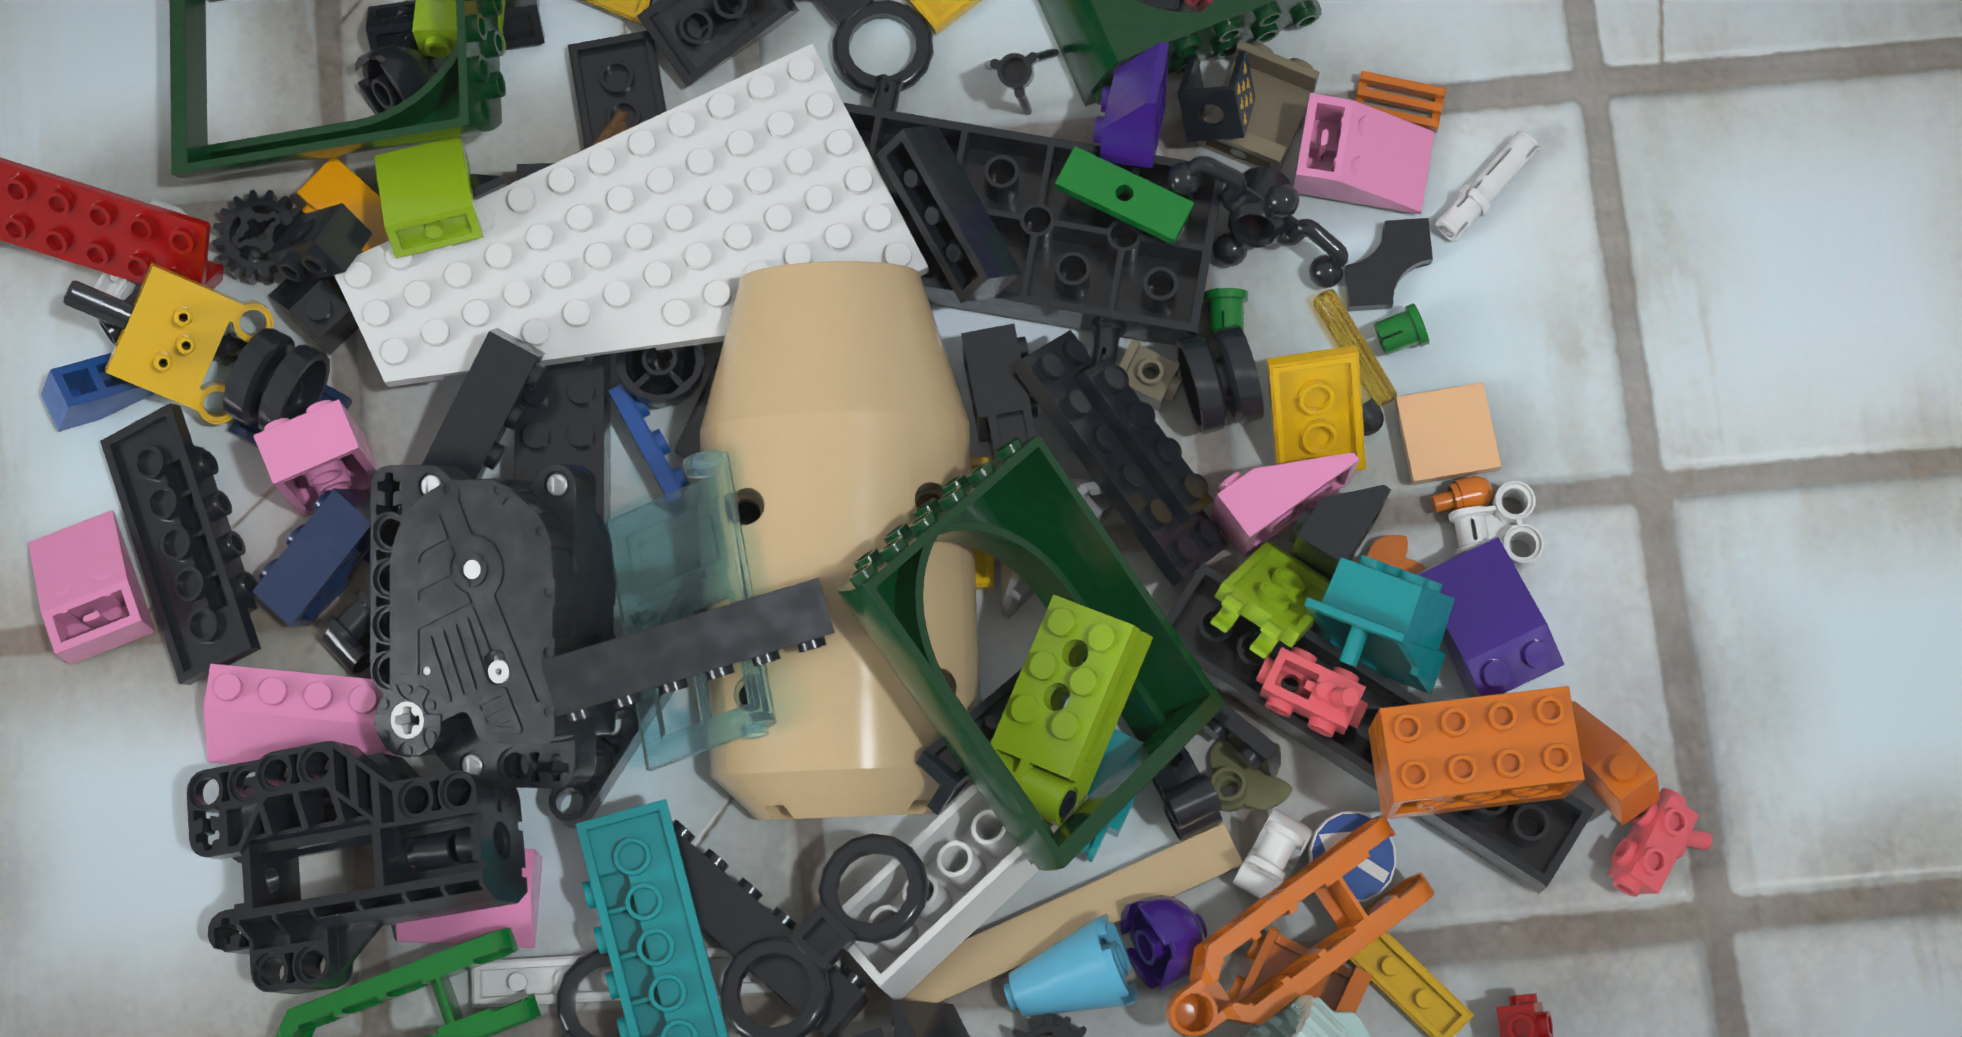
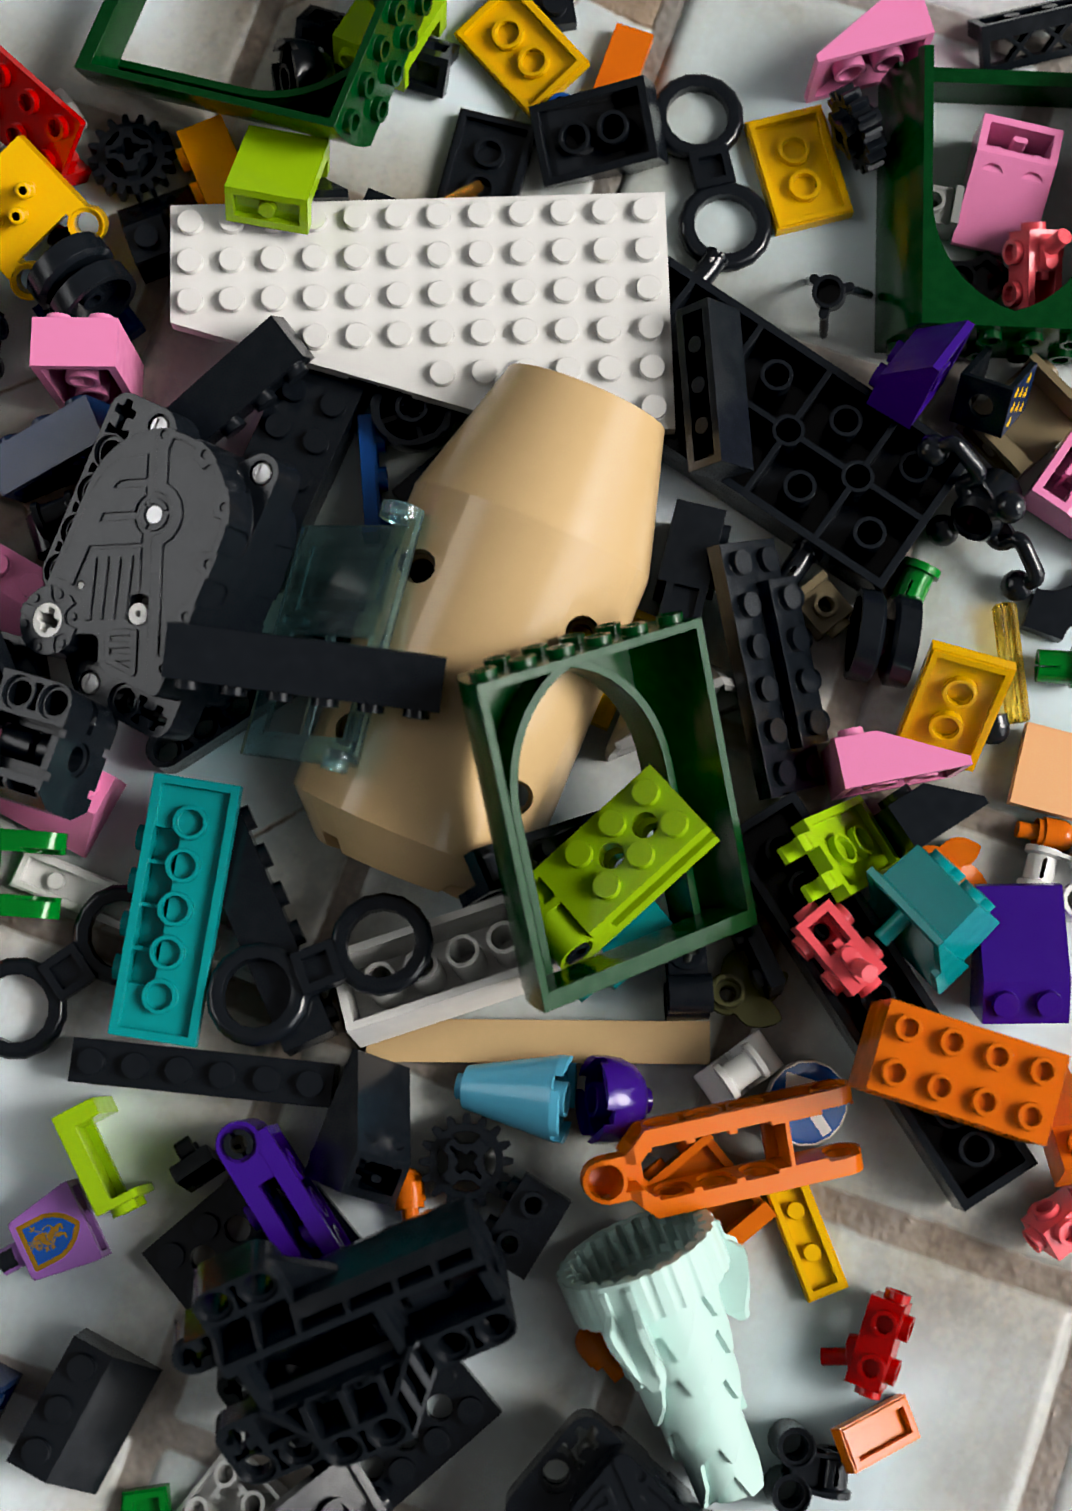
camera: 20 degrees right, 5 degrees up
(319, 244) = (171, 182): black brick -> none
(1101, 182) = (856, 422): green tile -> none

